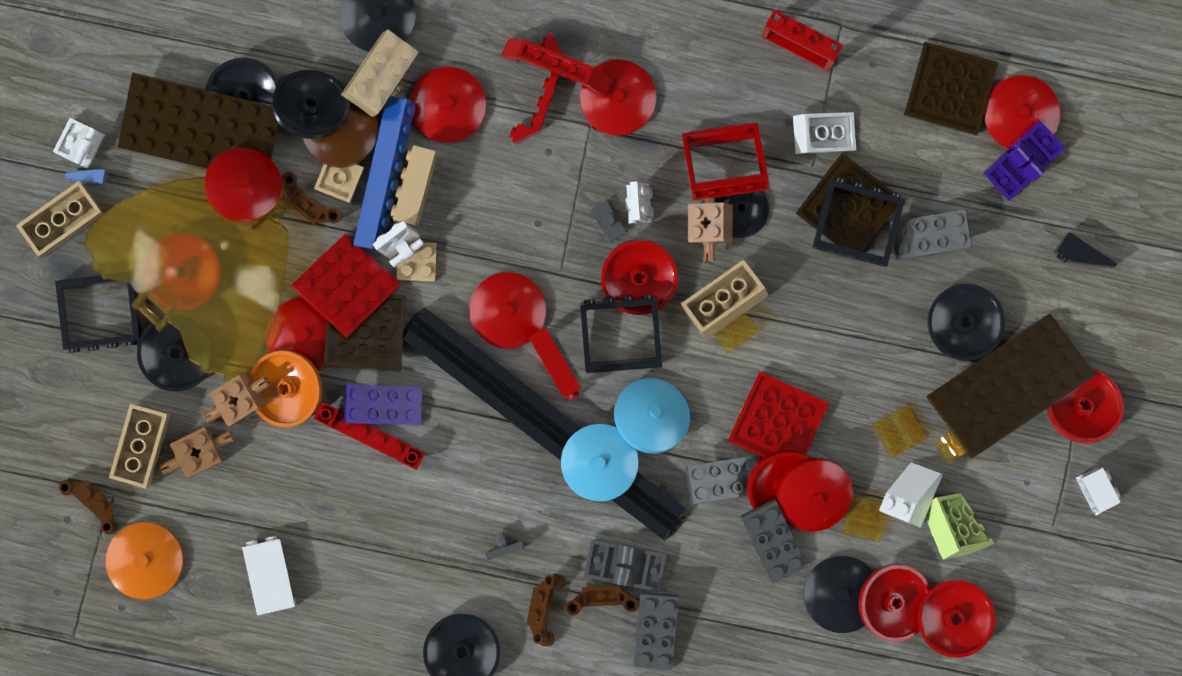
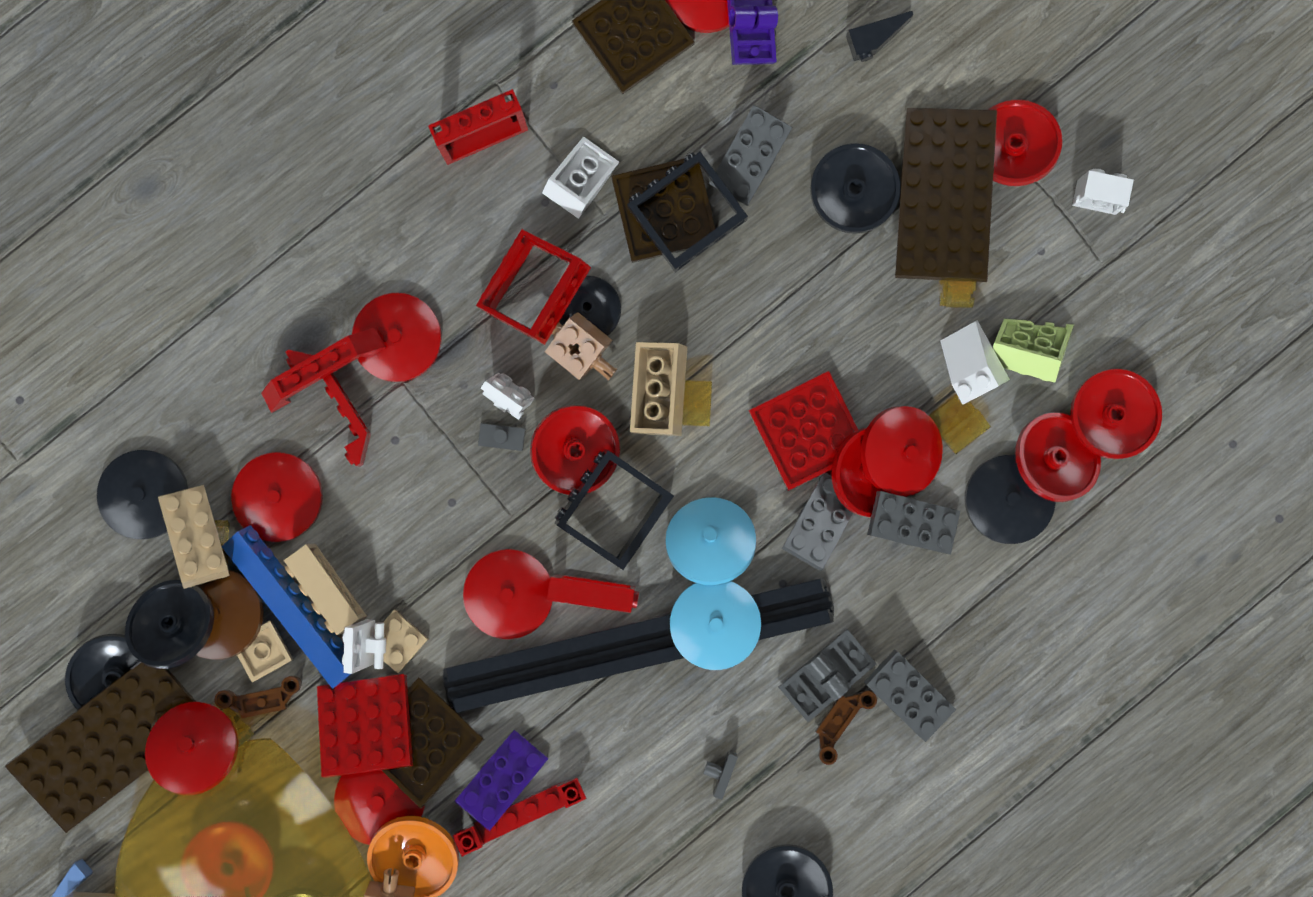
camera: 50 degrees left, 0 degrees up
(79, 143) = (33, 866): white plate -> none
(540, 608) = (804, 785): reddish brown plate -> none
(899, 431) = (904, 328): clear yellow slope -> none

